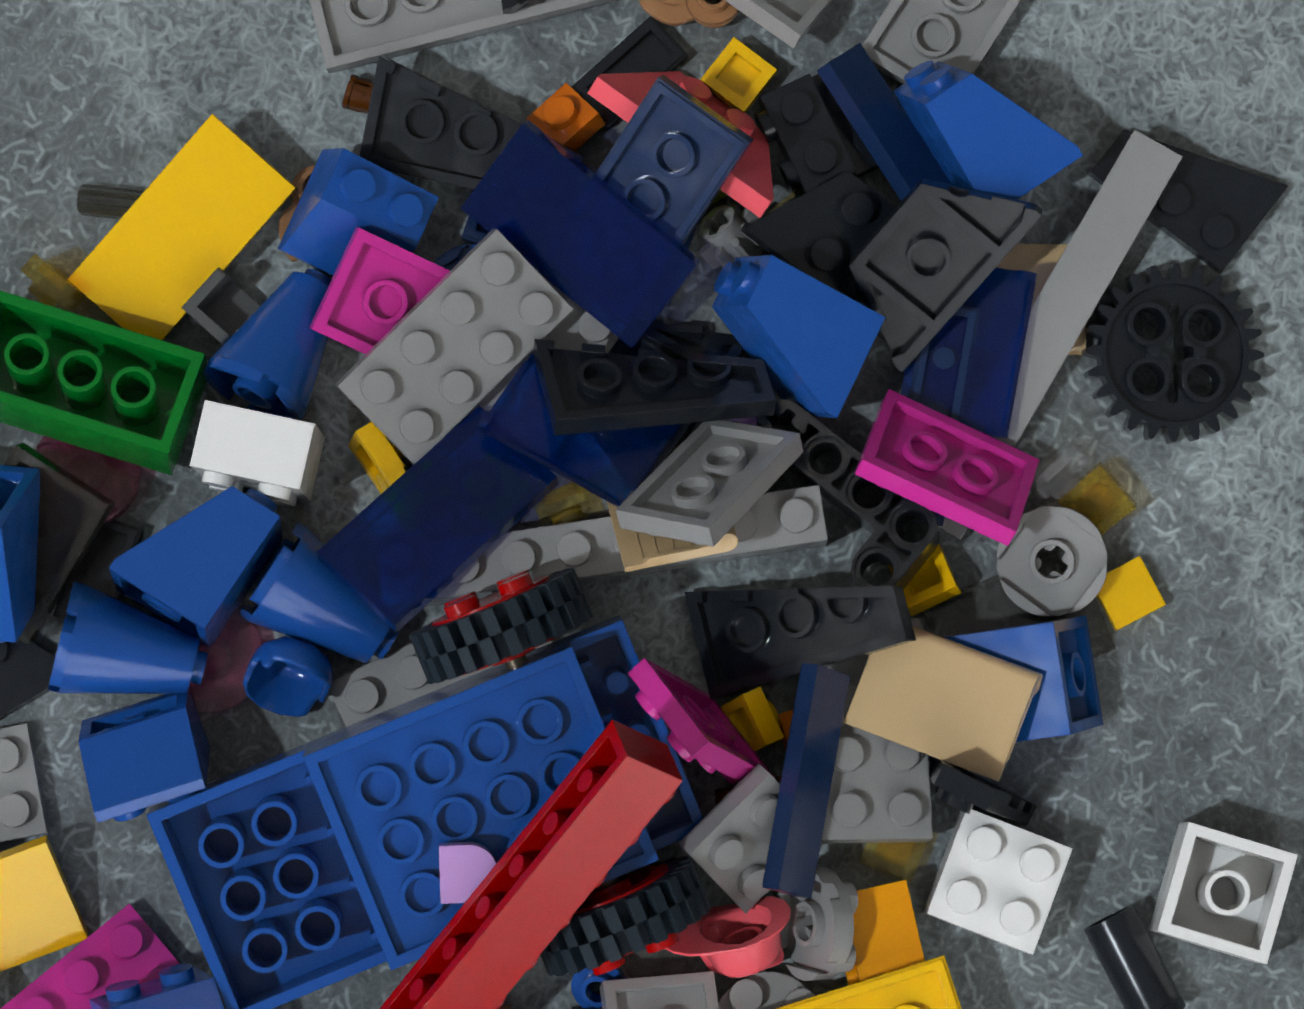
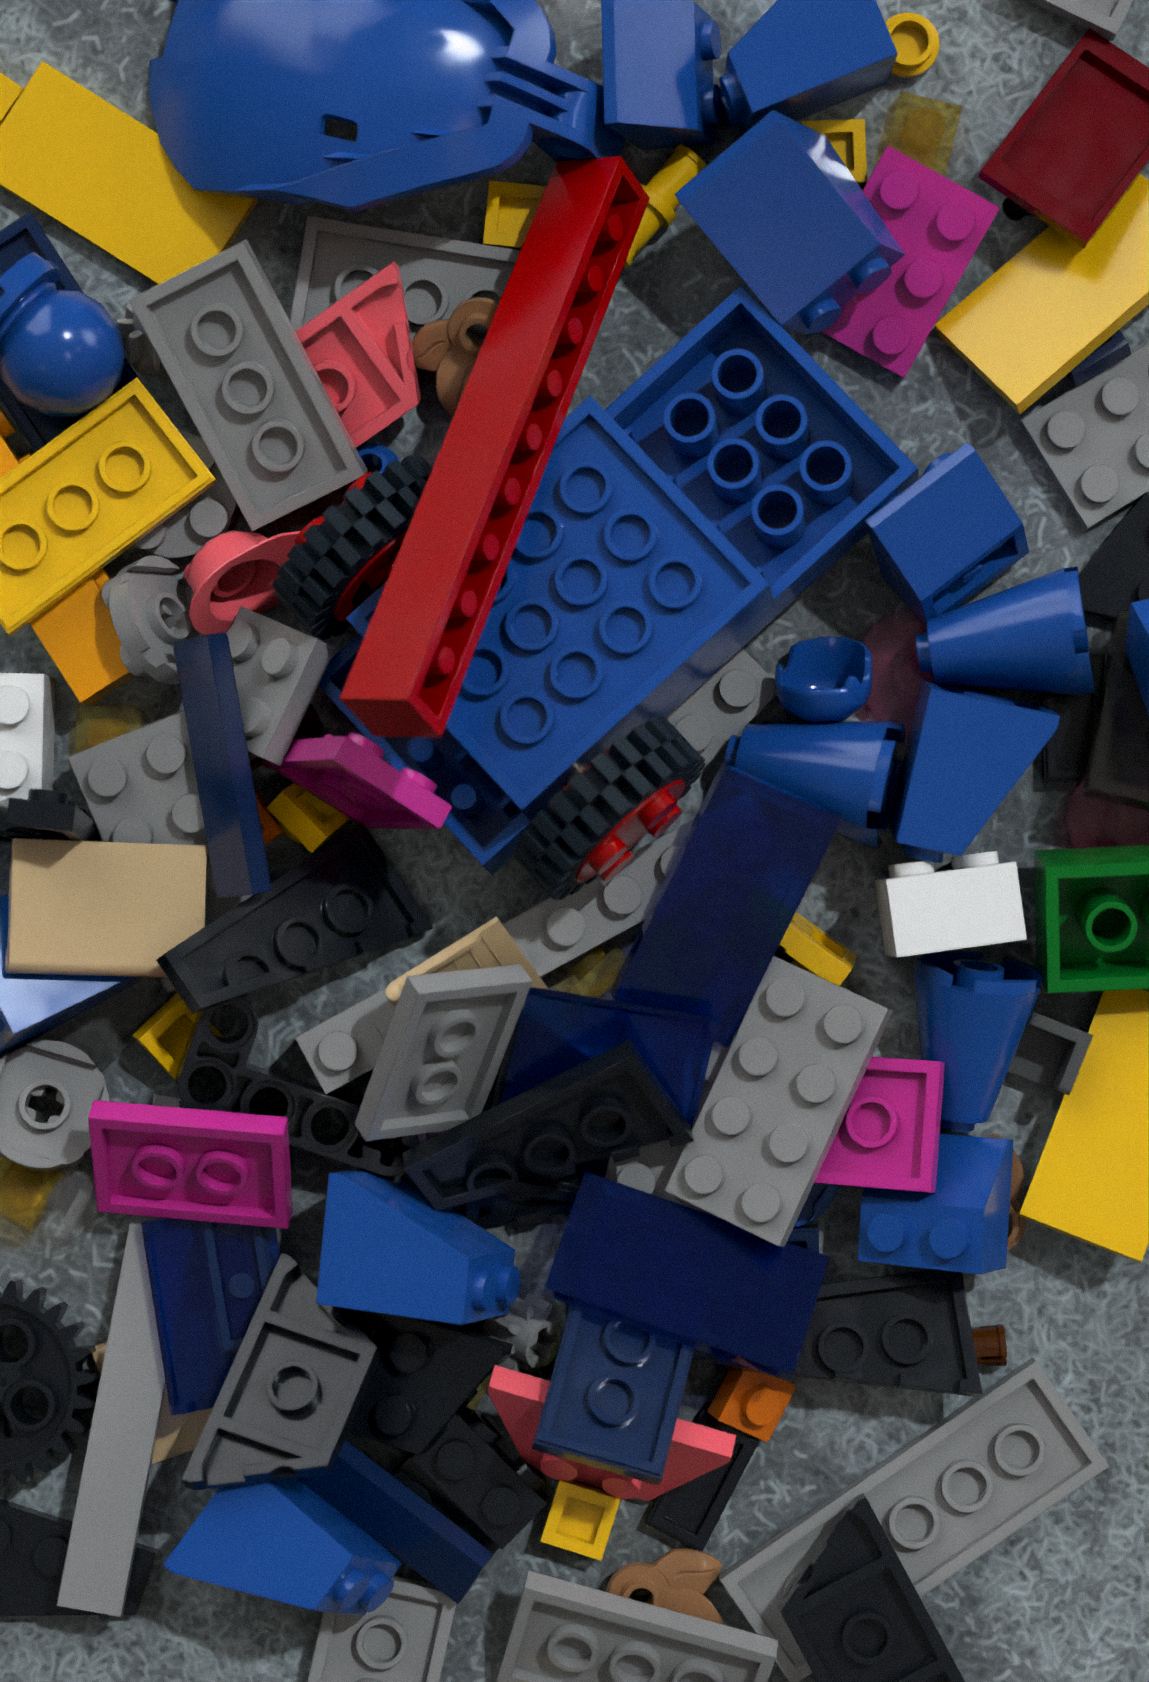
camera: 155 degrees right, 5 degrees up
(462, 869) = (551, 527): lavender tile -> none

